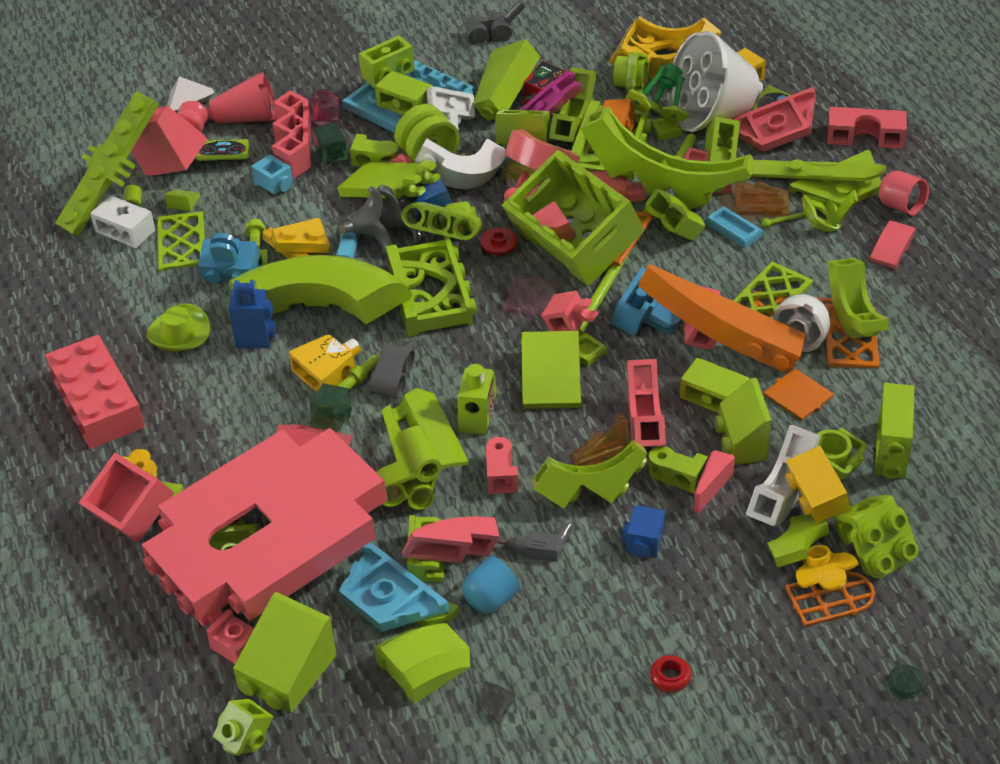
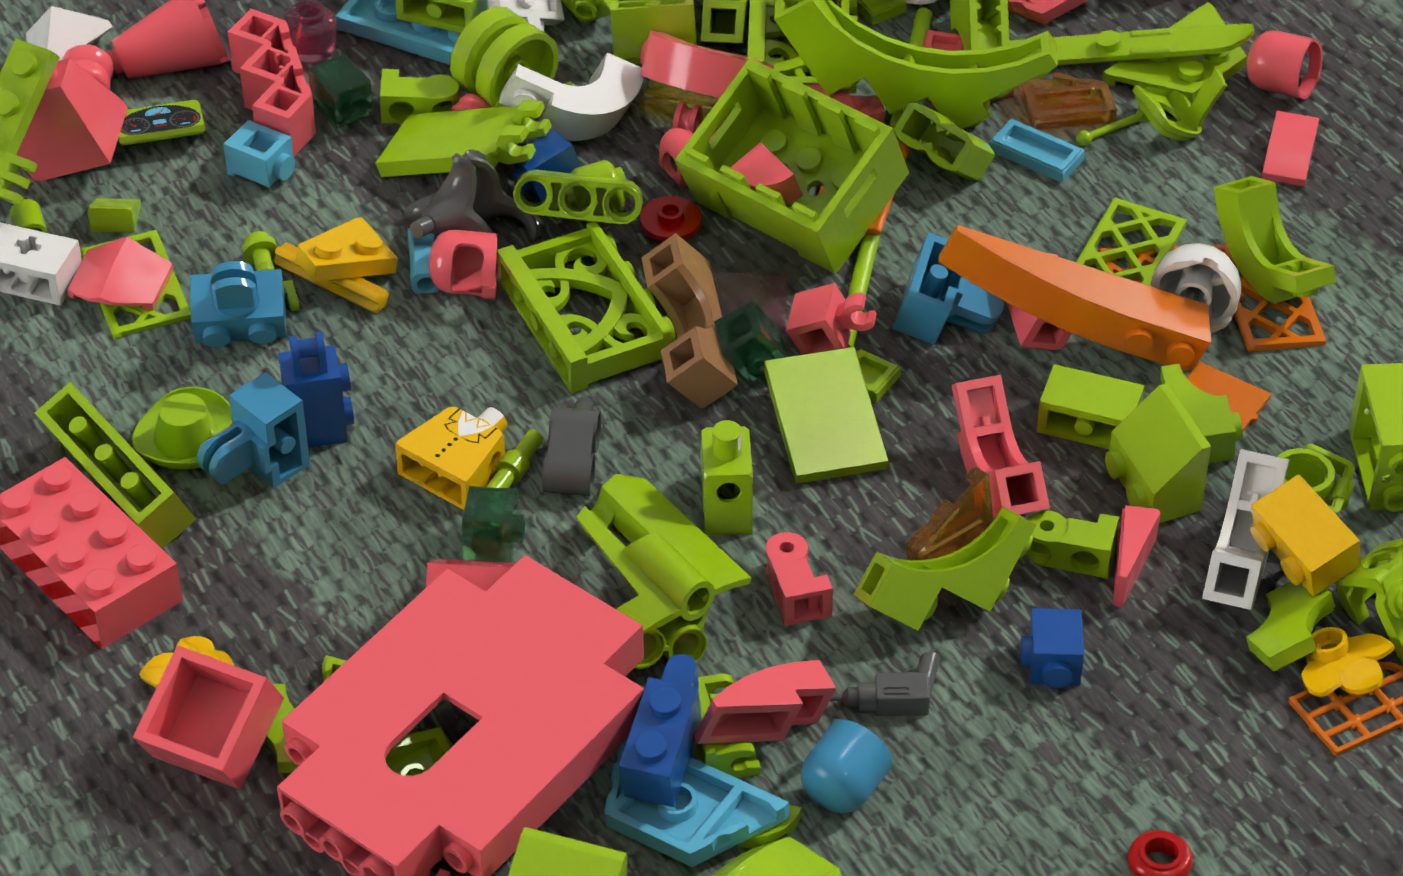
camera: 15 degrees left, 0 degrees up
(128, 344) = (115, 465): none -> lime brick
(172, 235) = (121, 275): none -> coral slope
(215, 337) = (263, 436): none -> dark azure brick
(328, 280) = (420, 318): lime brick -> none
(368, 248) = (464, 263): none -> coral helmet
(380, 548) = (662, 734): none -> blue brick
(486, 325) = (687, 292): none -> medium nougat arch
(517, 317) = (749, 339): none -> clear green brick
(780, 402) = (1209, 413): none -> lime arch

